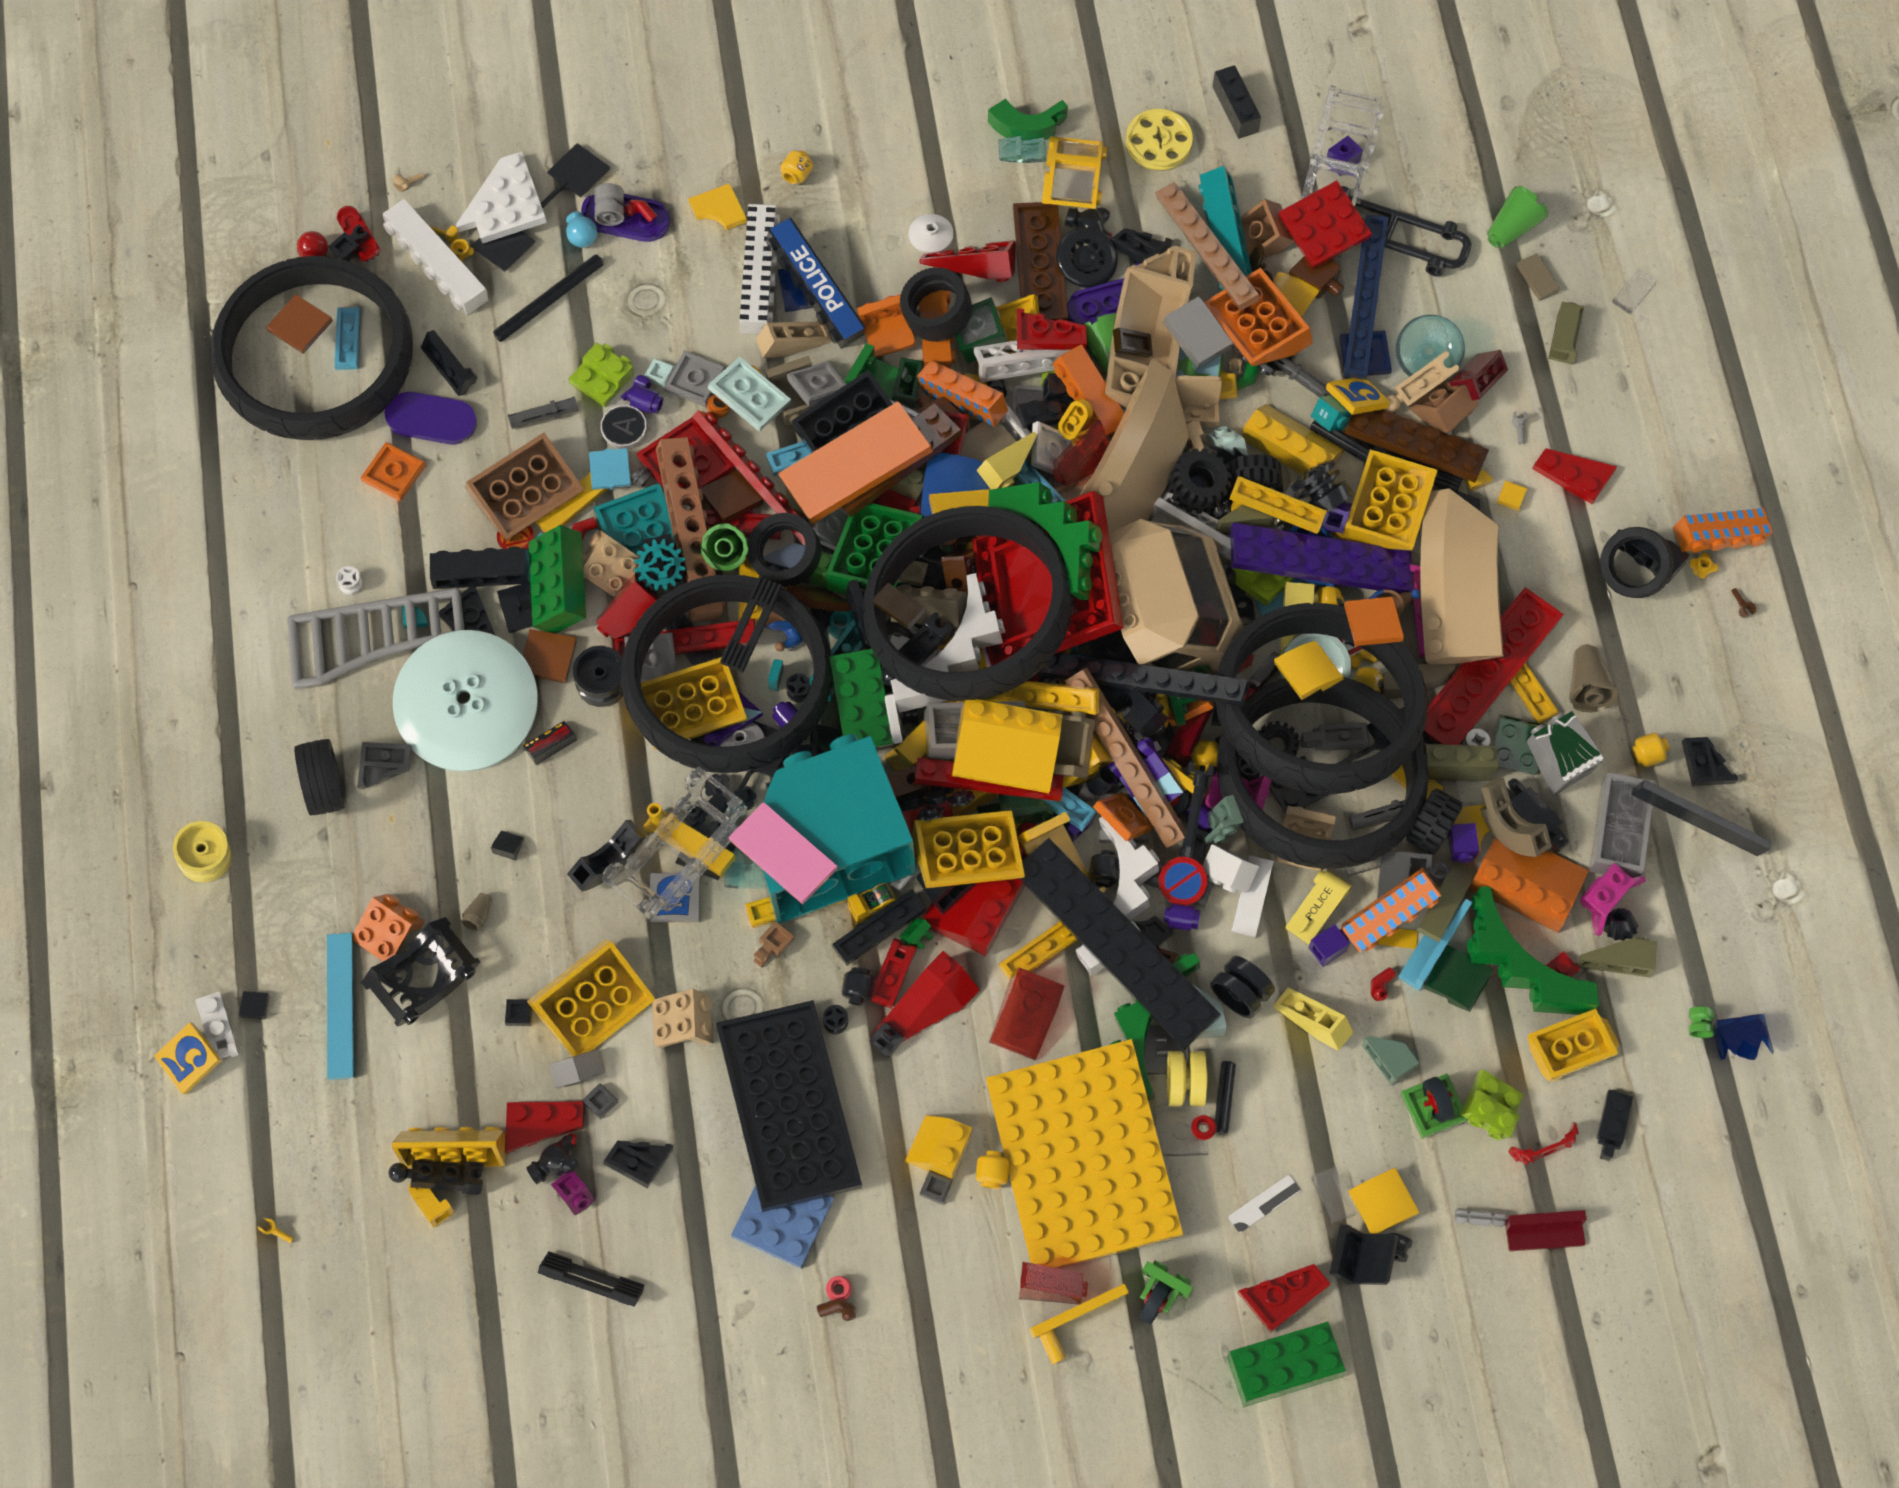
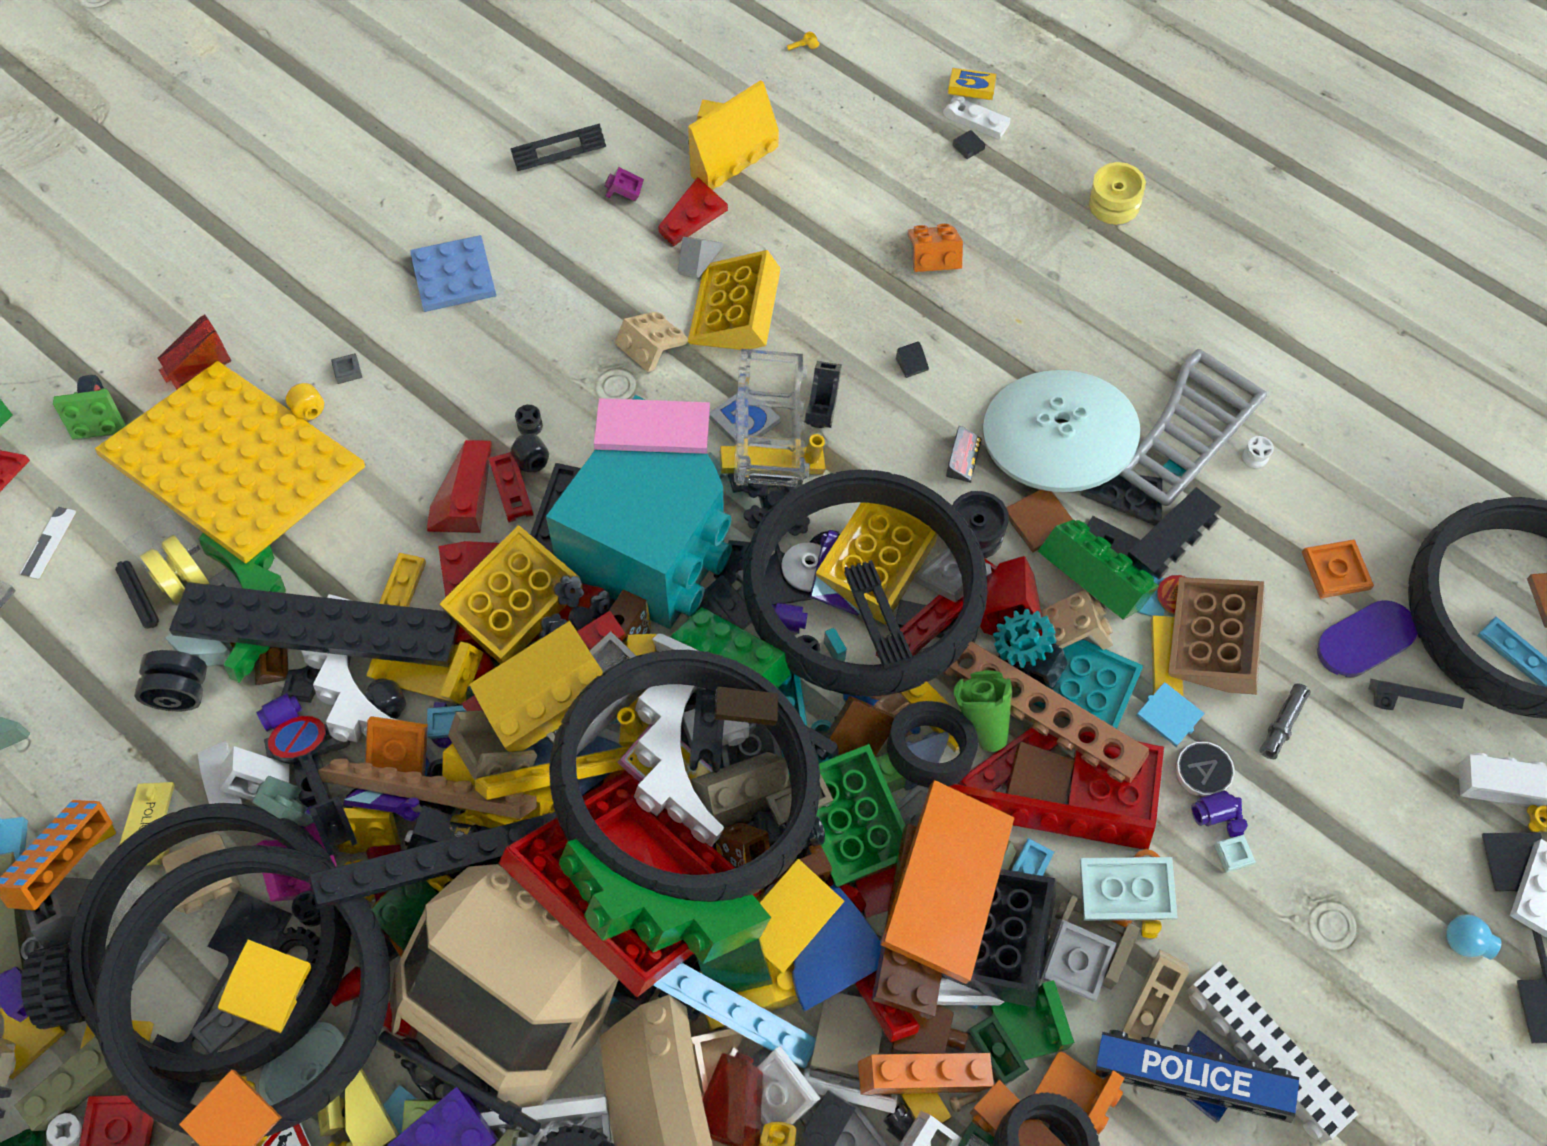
camera: 140 degrees right, 5 degrees down
(319, 777) = (1107, 268): black tyre -> none
(340, 1006) = (911, 183): medium azure tile -> none
(382, 762) = (1070, 345): dark grey wing -> none
(428, 939) = (884, 249): black fence -> none
(476, 913) = (881, 298): dark tan cone -> none
(518, 1013) = (785, 262): black tile -> none
(548, 298) = (1414, 843): black axle -> none
(554, 1160) = (654, 190): black animal -> none
(584, 526) = (1133, 641): red arm -> none
(600, 1101) = (662, 252): dark grey tile -> none
(602, 374) = (1280, 804): lime plate -> none
(609, 204) = (1484, 986): light grey wheel -> none
(633, 226) = (1454, 1001): dark purple tile -> none
(638, 1160) = (595, 233): black wing -> none
(641, 477) = (1136, 729): dark grey plate -> none
(642, 207) = (1456, 1009): red arm -> none
(692, 378) = (1201, 877): light grey tile -> none
(718, 205) = (1388, 1098): yellow tile -> none
(788, 1106) = (511, 334): black plate -> none
(837, 1306) = (353, 248): reddish brown arm -> none
(839, 1281) = (368, 256): coral plate -> none
(887, 1039) = (473, 434): black tile -> none
(915, 931) = (514, 519): green tile -> none
(939, 1145) = (363, 391): yellow slope -> none
(1003, 466) = (800, 1012): light yellow slope -> none
(1026, 1013) = (366, 534): clear red slope -> none
(1045, 1329) = (146, 372): yellow piece -> none
(1203, 1120) = (133, 544): red plate -> none
(1215, 525) = (508, 1111): none -> black bar
(1315, 1018) = (87, 714): light yellow slope -> none
(1329, 945) = (113, 790): dark purple brick -> none
(1379, 982) = (41, 795): red arm -> none

